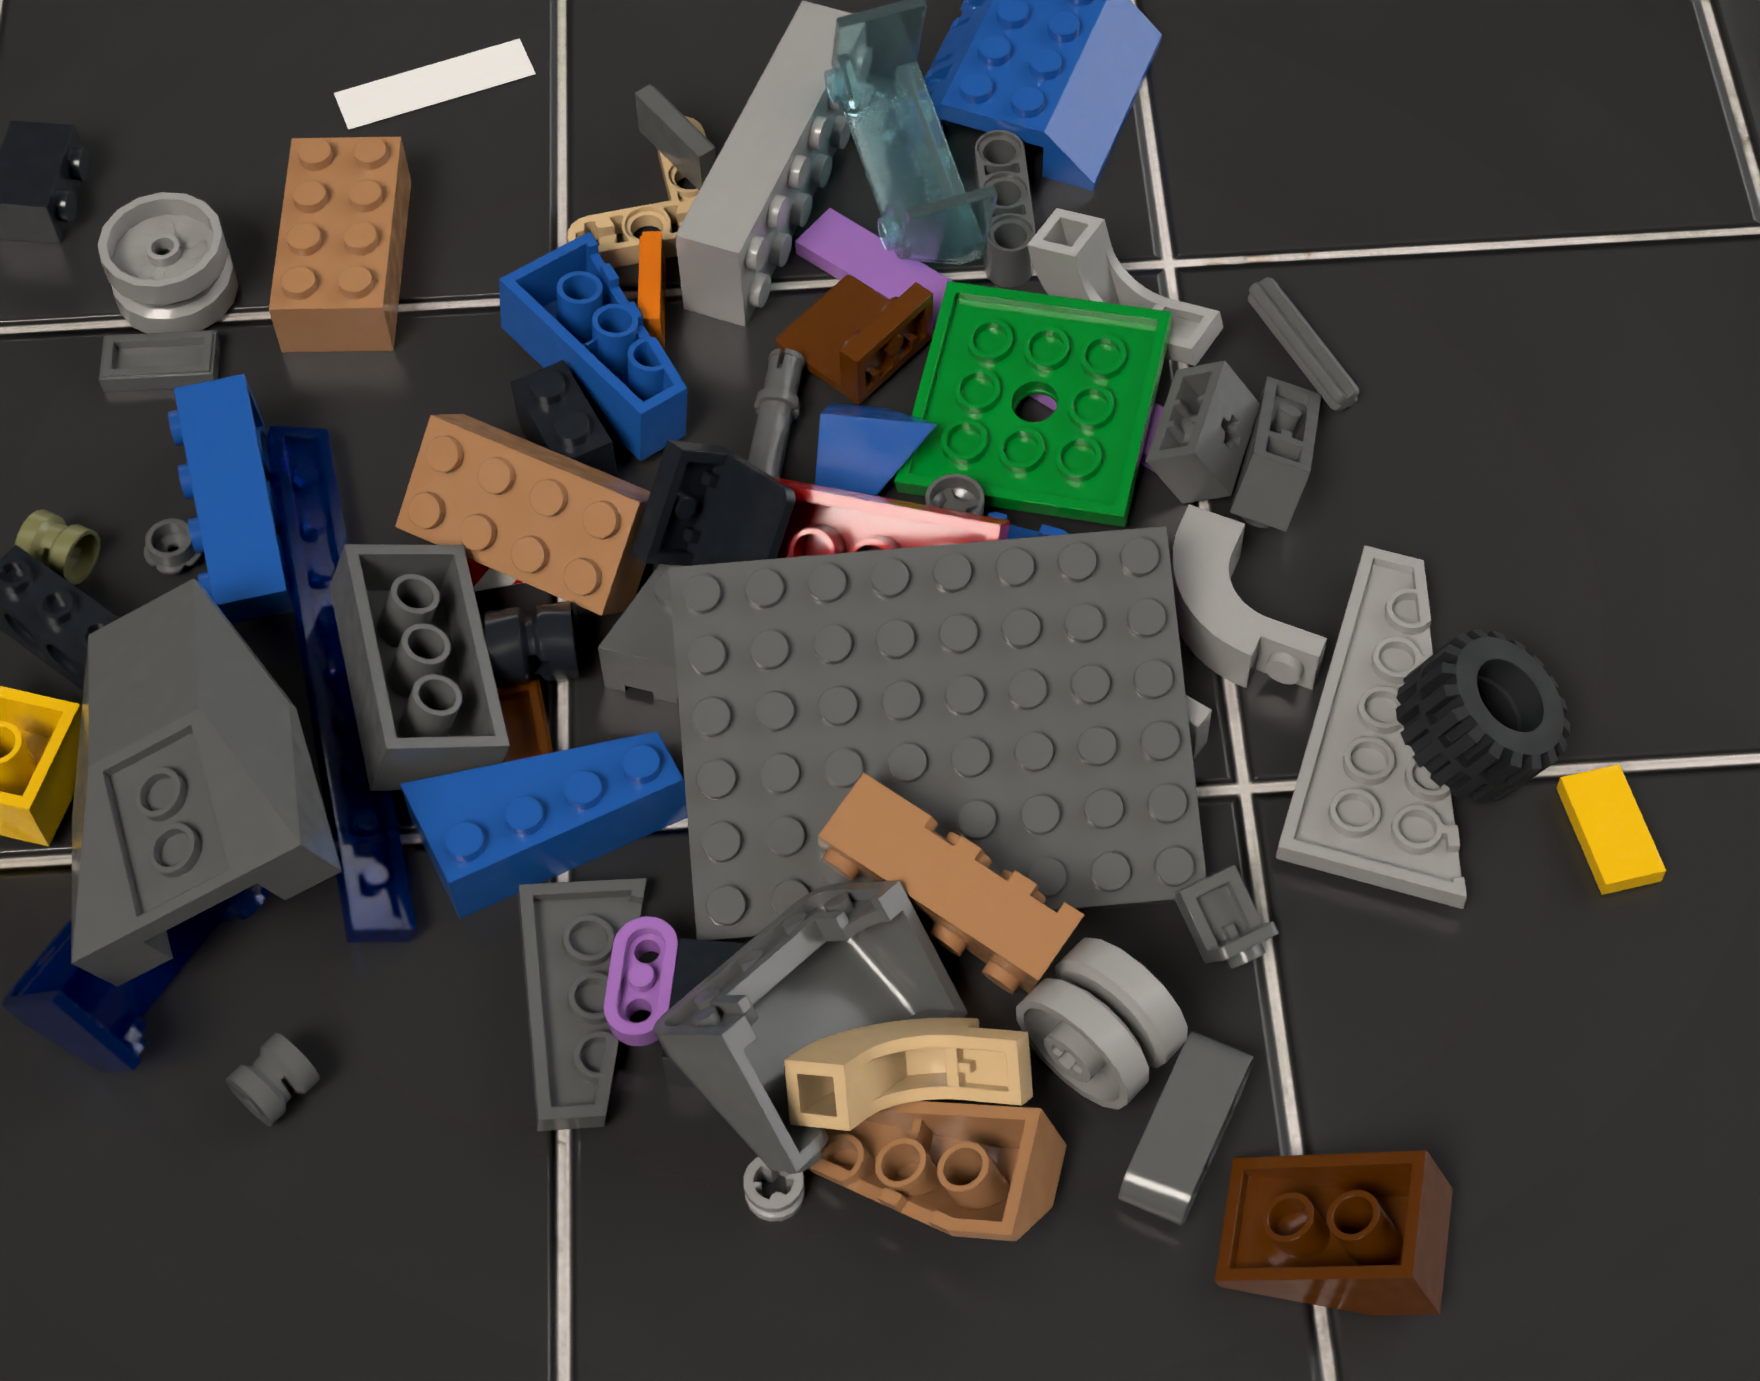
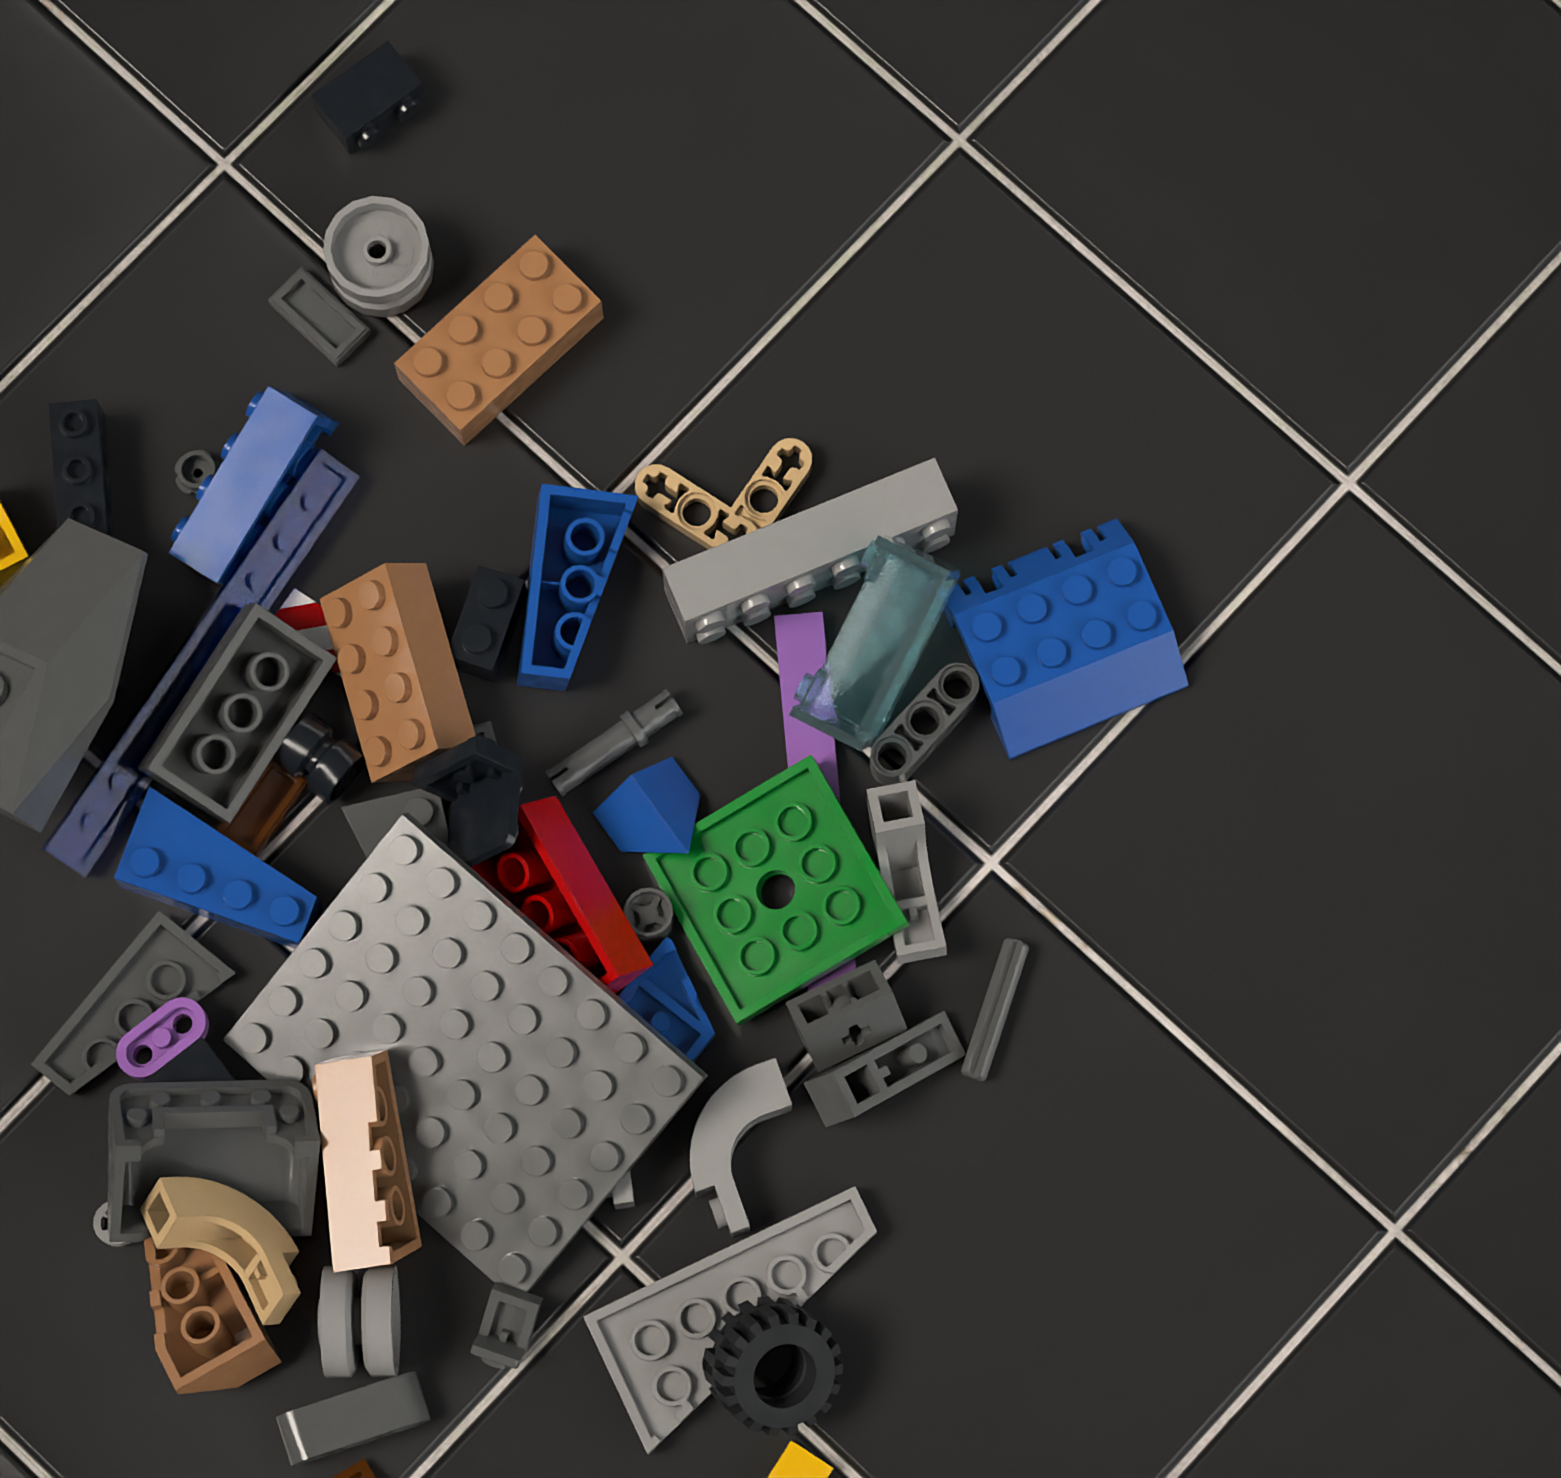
camera: 45 degrees right, 20 degrees up
(63, 548) = (132, 409): olive wheel -> none
(434, 83) = (695, 250): white sticker -> none
(652, 284) = (645, 568): orange tile -> none
(674, 135) = (770, 471): dark grey tile -> none
(859, 336) = (733, 724): reddish brown bracket -> none

